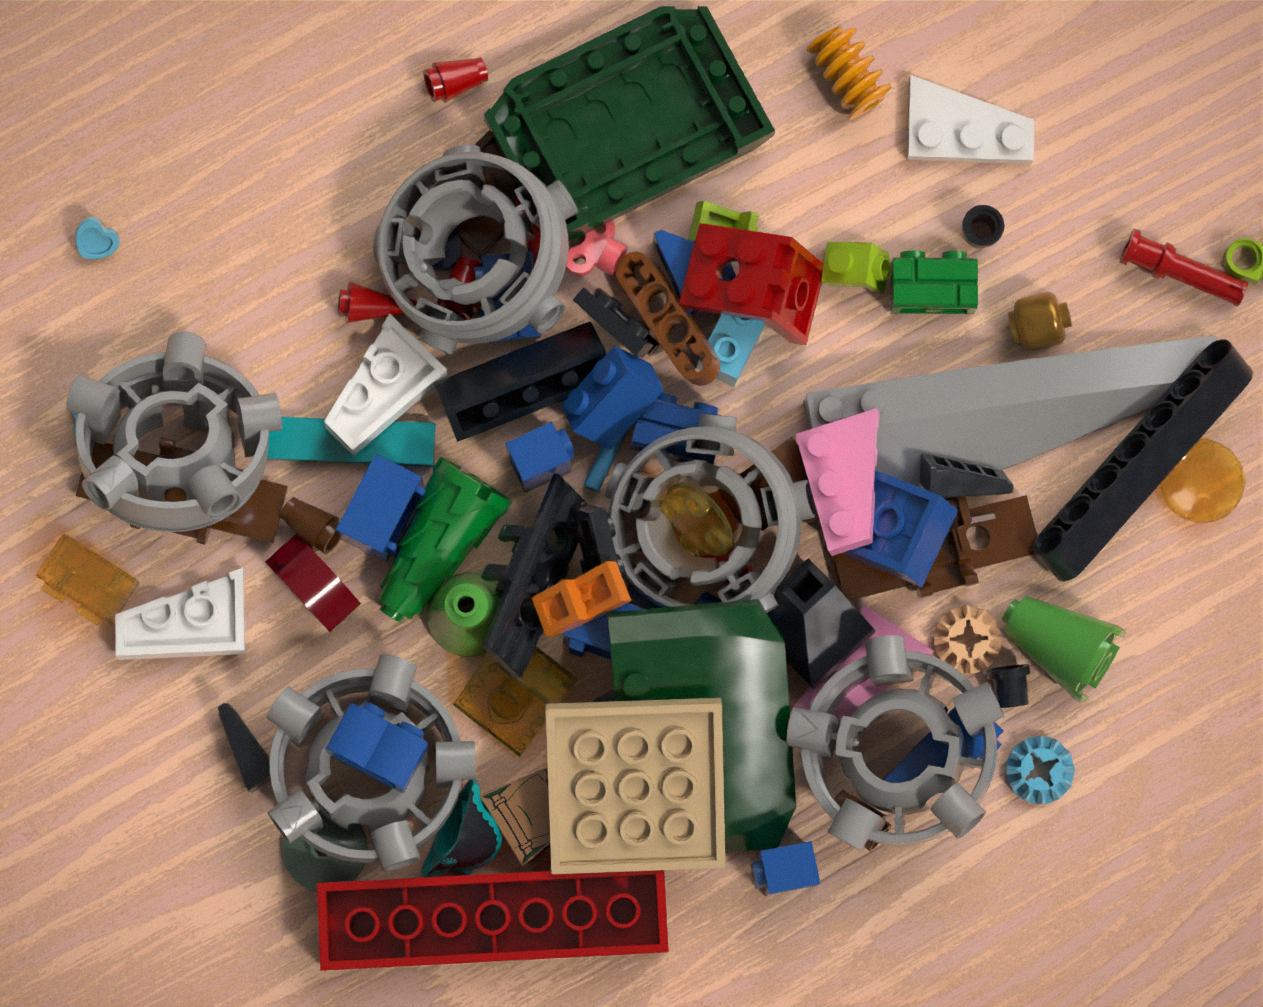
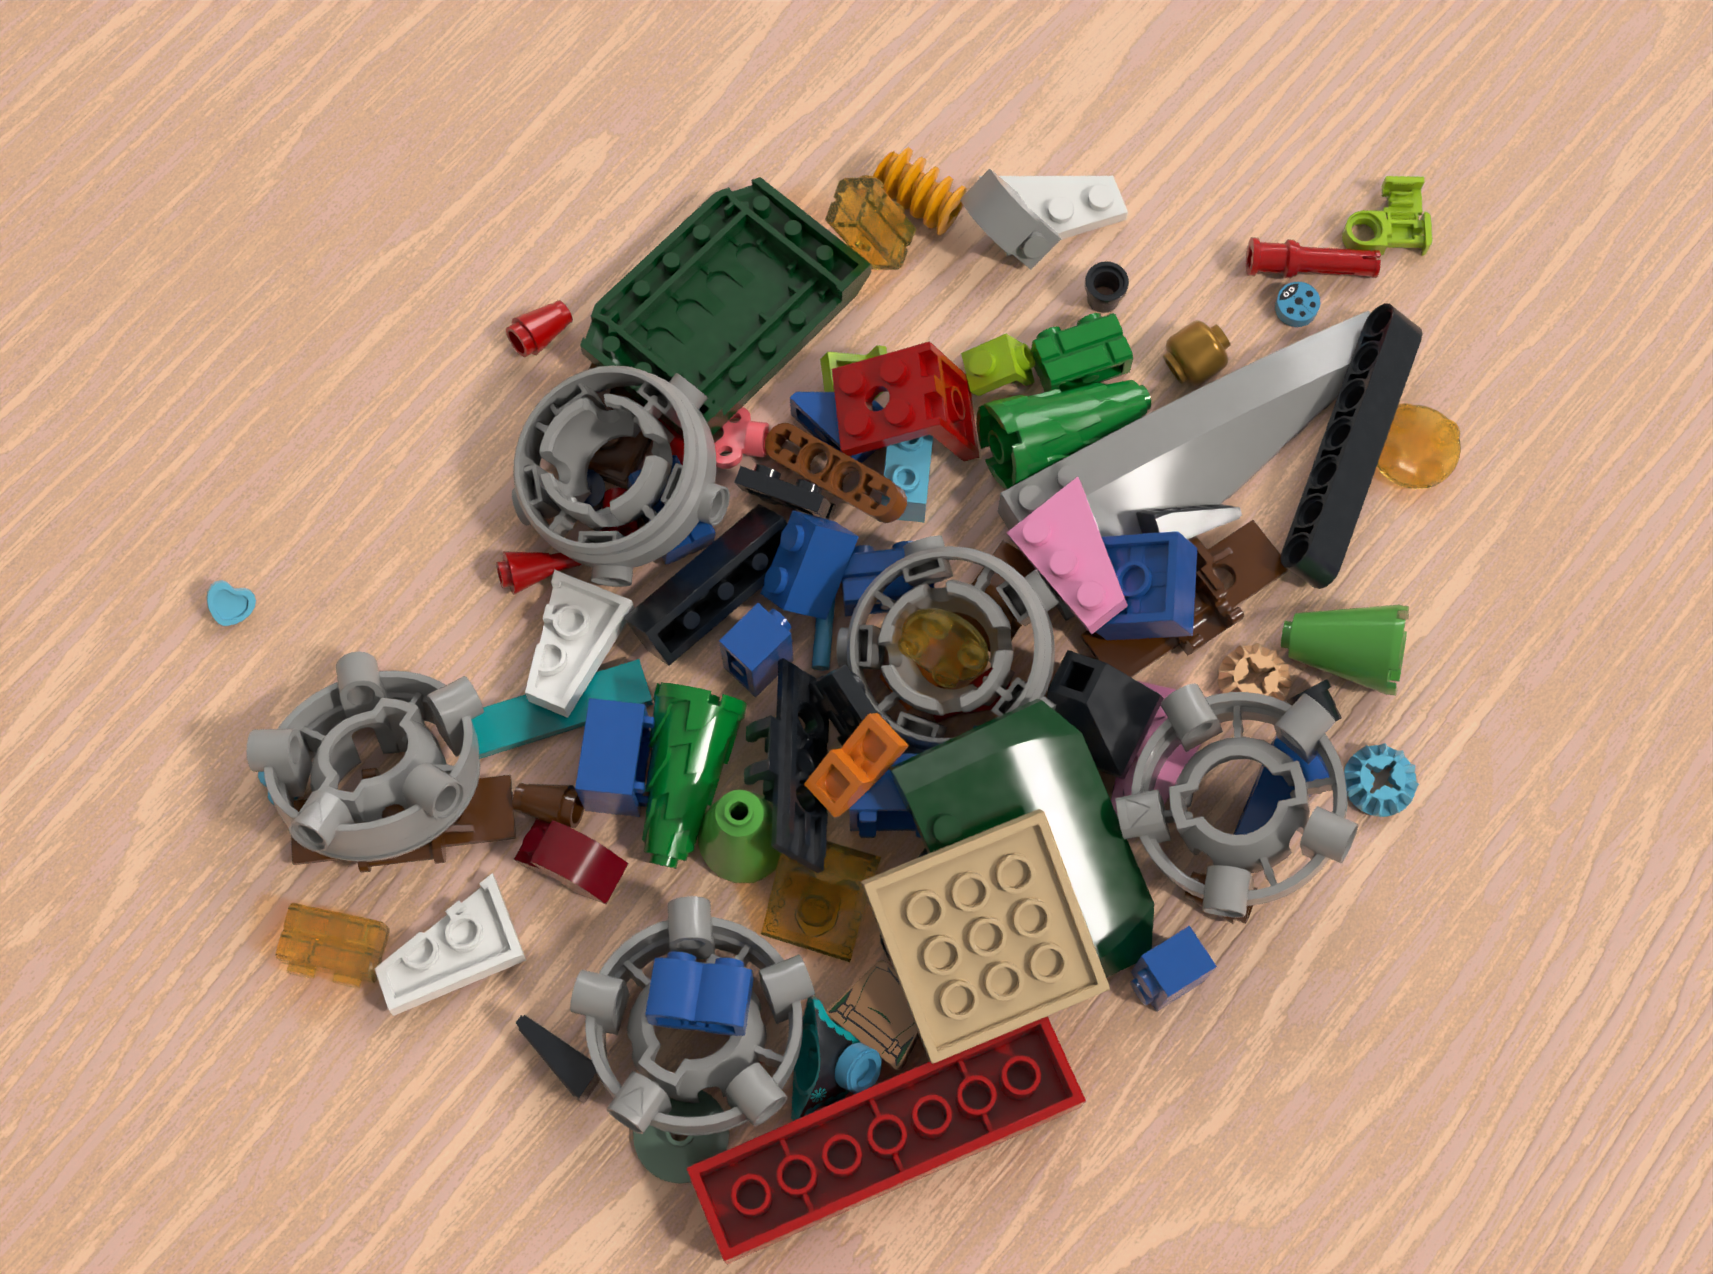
camera: 15 degrees left, 10 degrees down
(490, 853) = (858, 1068): none -> dark azure tile
(789, 91) = (871, 222): none -> clear yellow brick
(879, 346) = (1049, 426): none -> green cone
(913, 133) = (1009, 220): none -> light grey brick
(1153, 306) = (1297, 304): none -> dark azure tile

